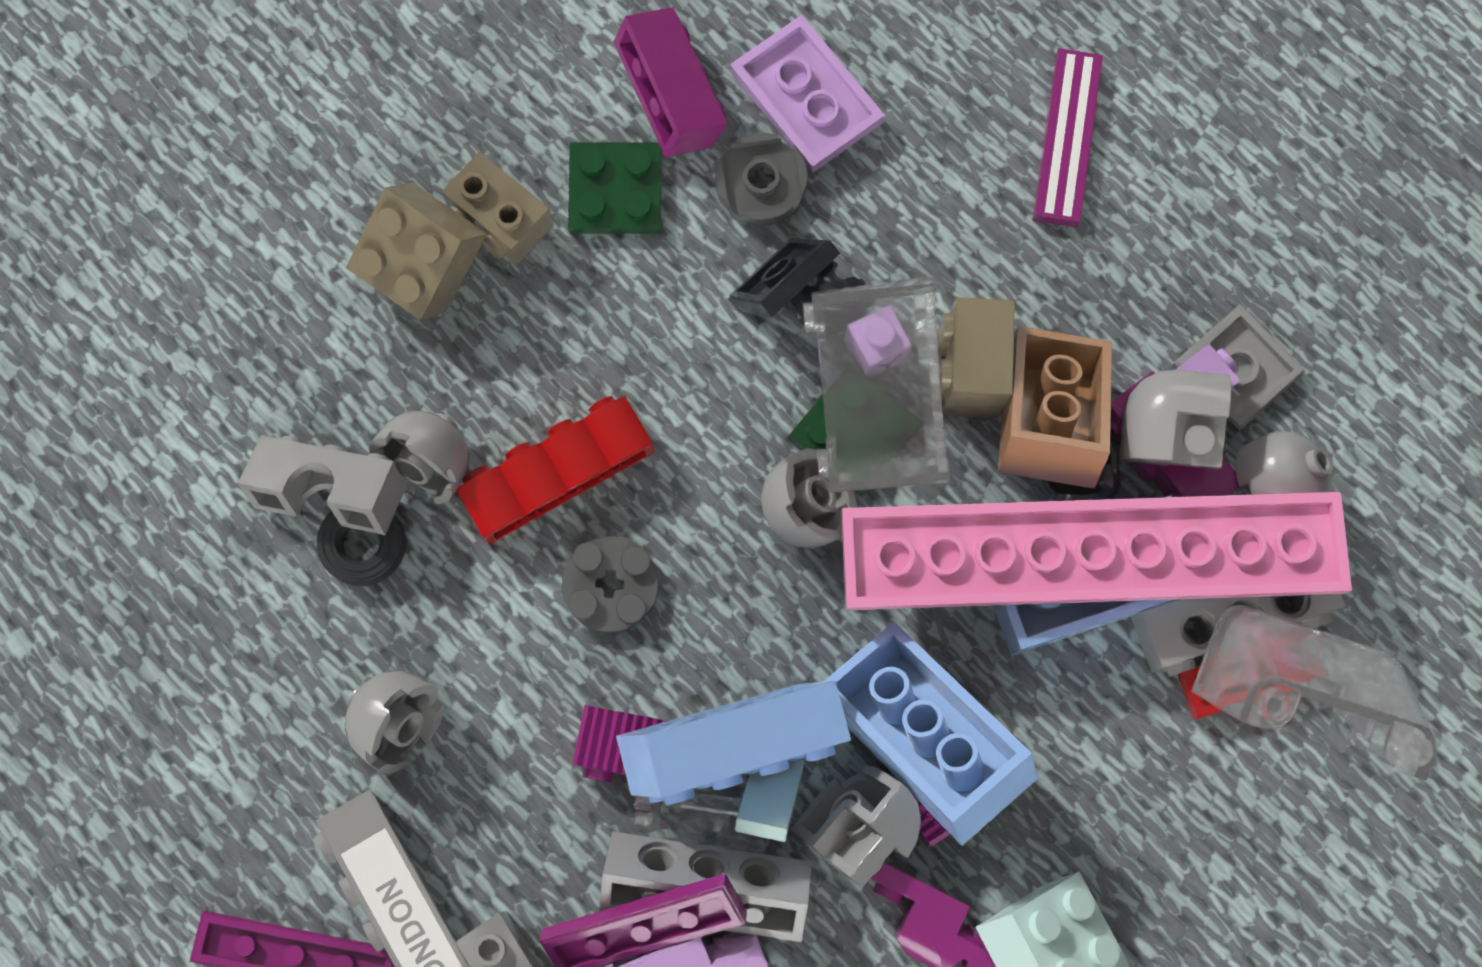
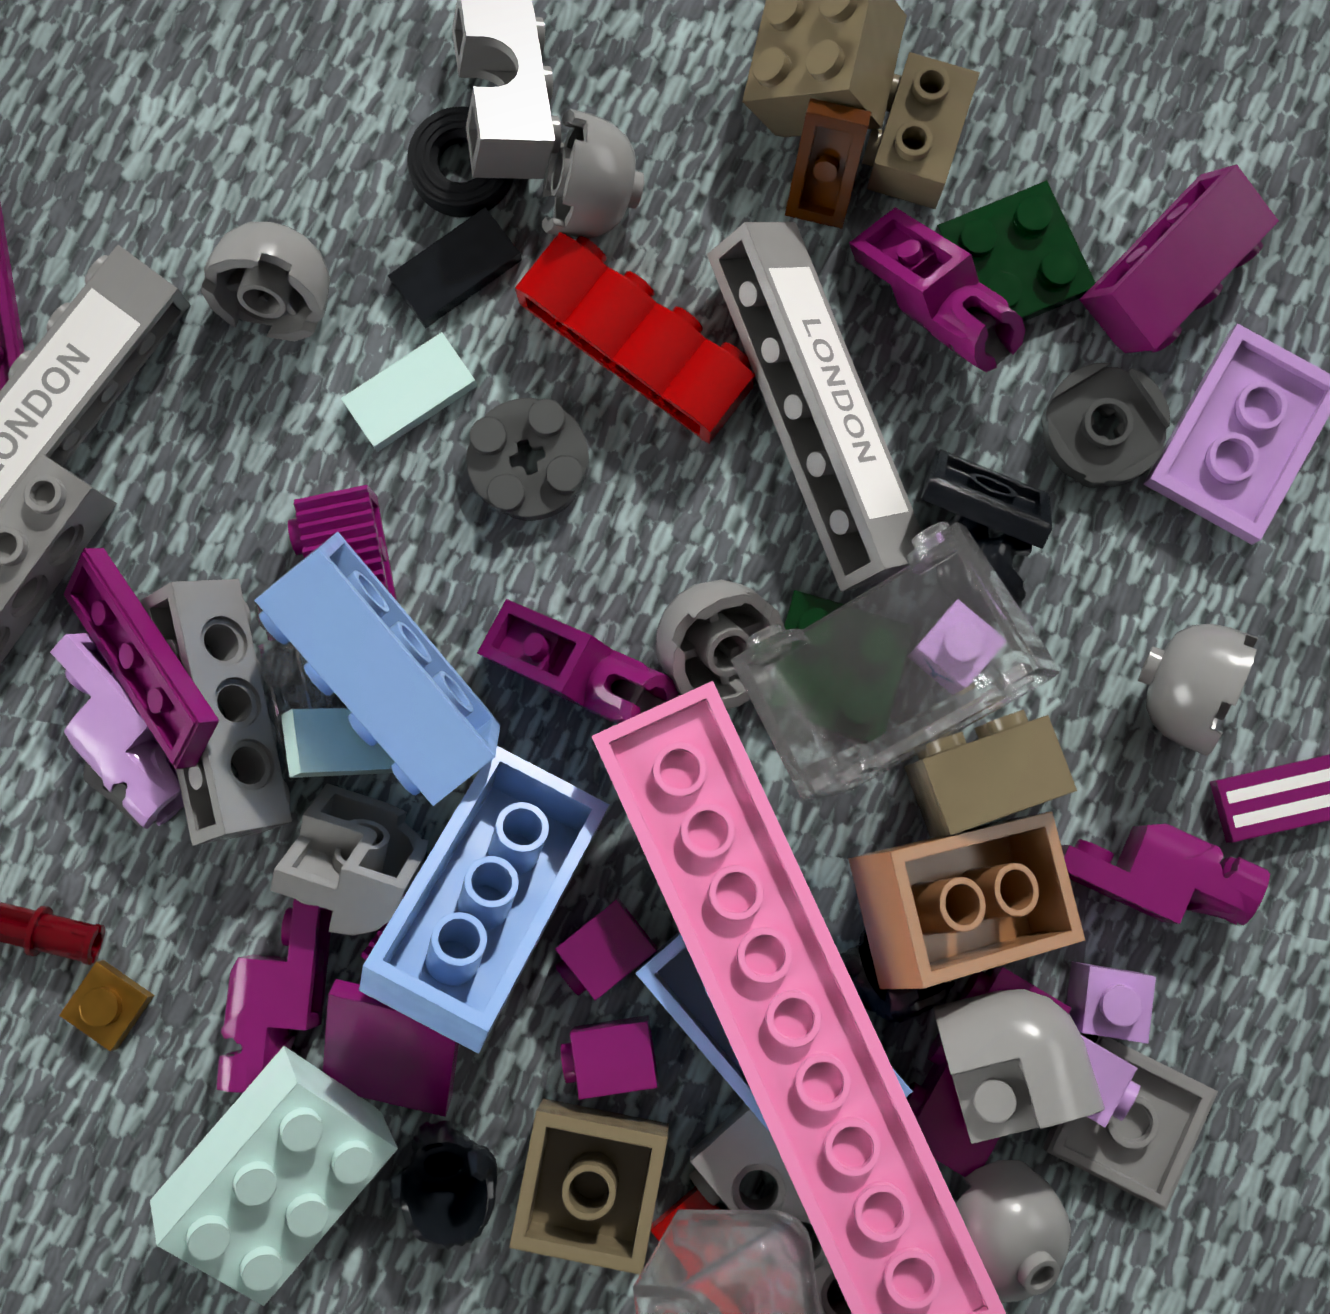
camera: 75 degrees right, 5 degrees up
(440, 580) = (455, 267): none -> black tile
(494, 281) = (827, 162): none -> reddish brown plate
(520, 651) = (409, 392): none -> light aqua tile
(617, 245) = (940, 289): none -> magenta plate
(663, 362) = (816, 402): none -> light grey brick
(781, 609) = (573, 664): none -> magenta plate
(966, 196) = (1197, 682): none -> light grey cylinder
(992, 671) = (603, 951): none -> magenta brick
(1006, 855) = (386, 1053): none -> magenta tile
(1069, 697) = (610, 1057): none -> magenta brick
(1085, 270) = (1168, 873): none -> magenta plate
(1117, 849) = (446, 1186): none -> black hair
(1153, 745) = (590, 1186): none -> dark tan brick
(1156, 344) = (1111, 1001): none -> lavender brick

